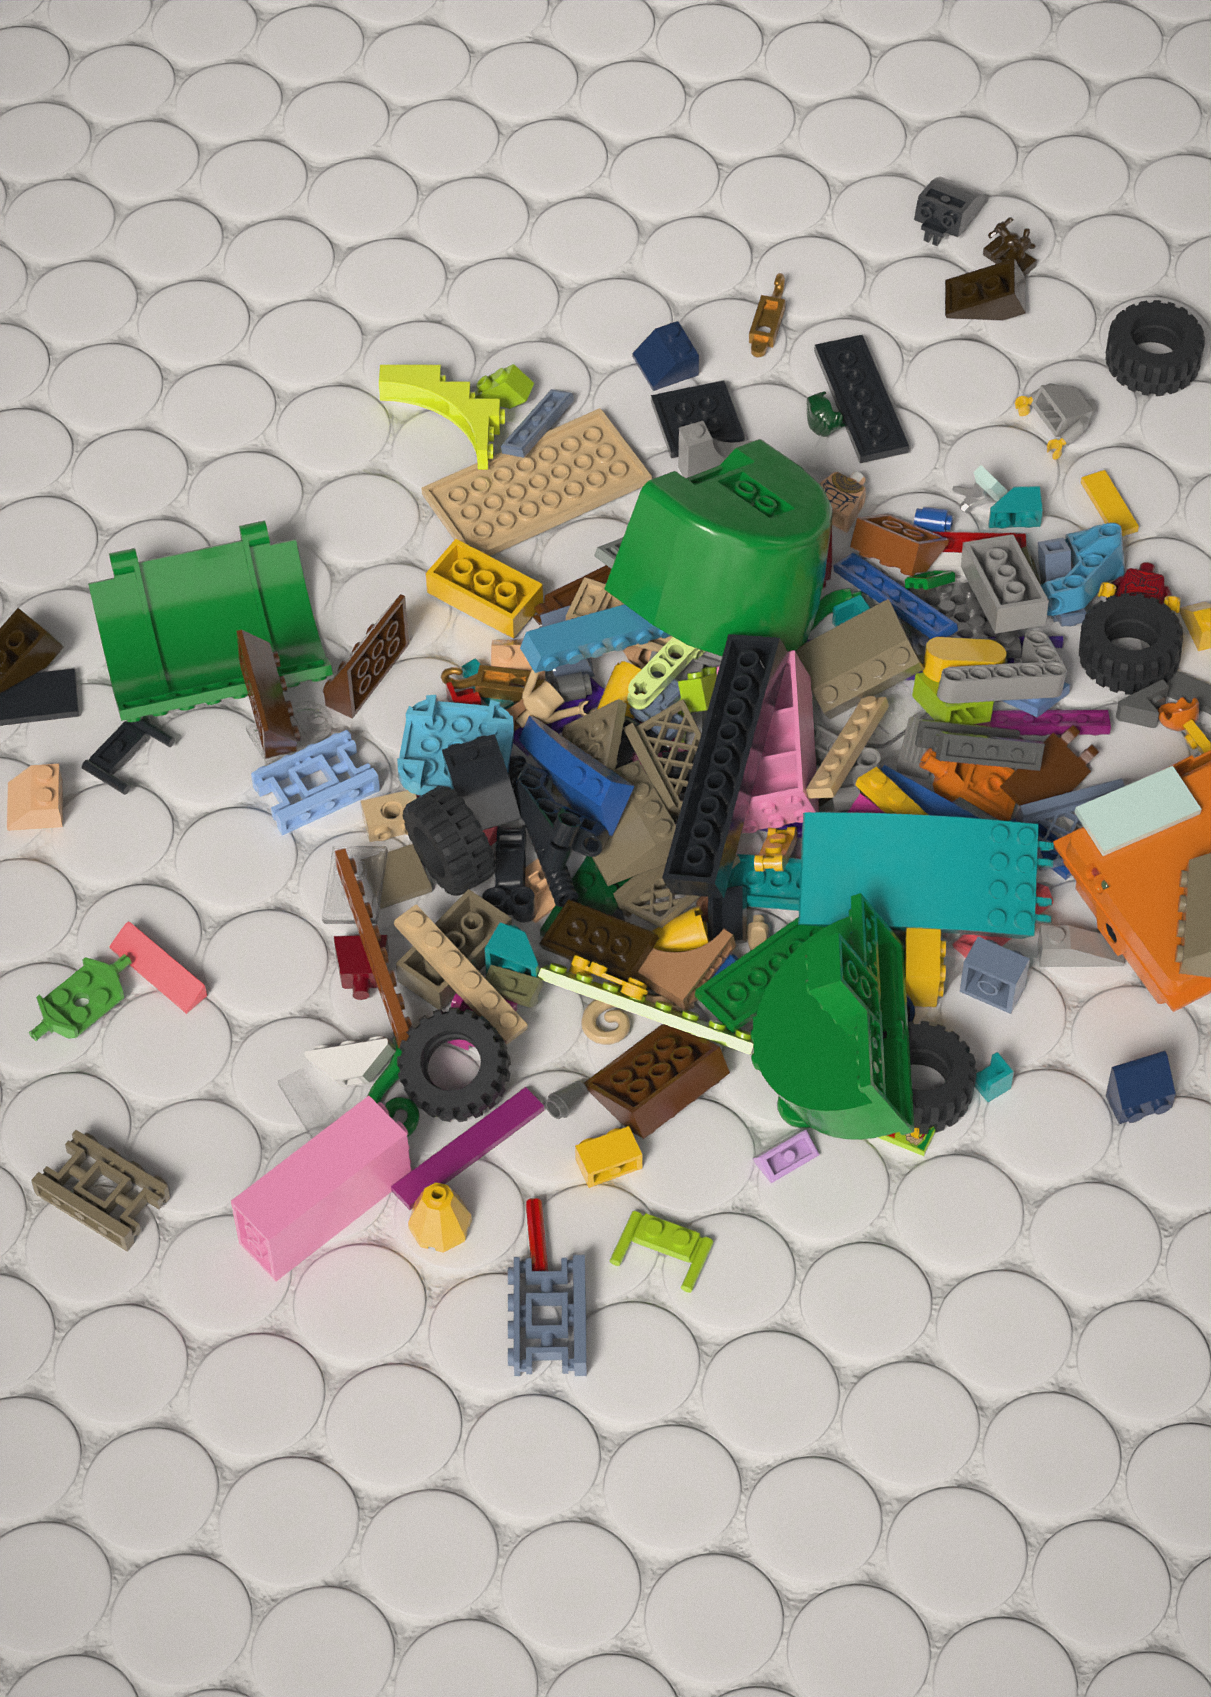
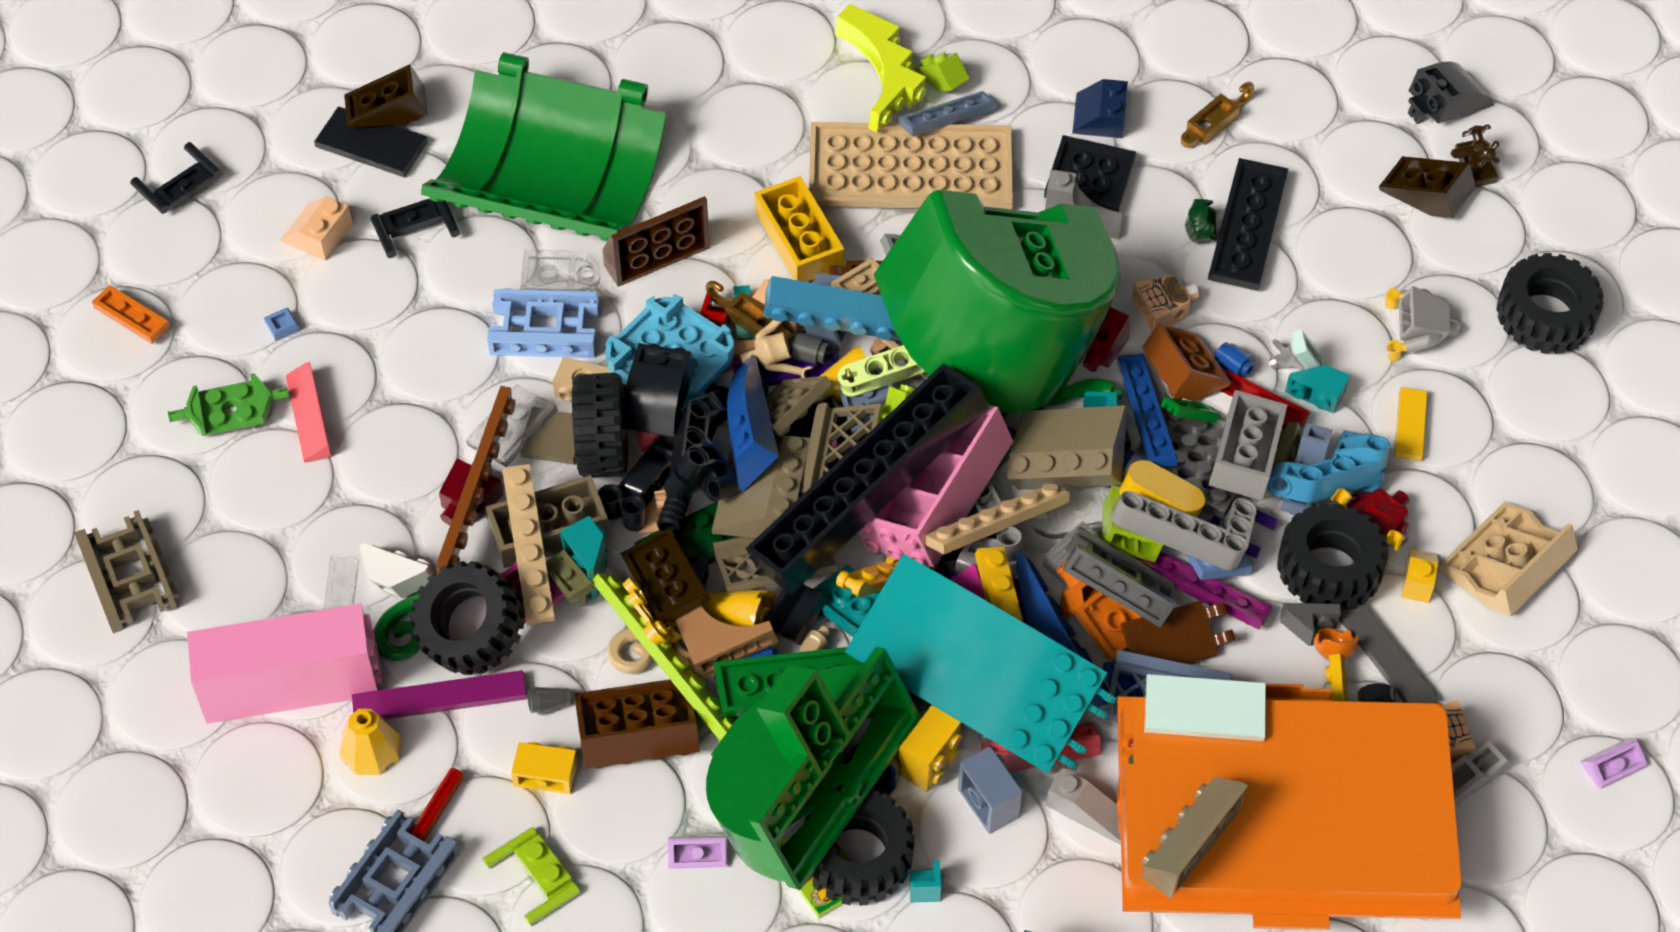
camera: 30 degrees right, 0 degrees up
(68, 903) = (281, 324): none -> medium blue tile
(266, 695) = (537, 226): reddish brown slope -> none

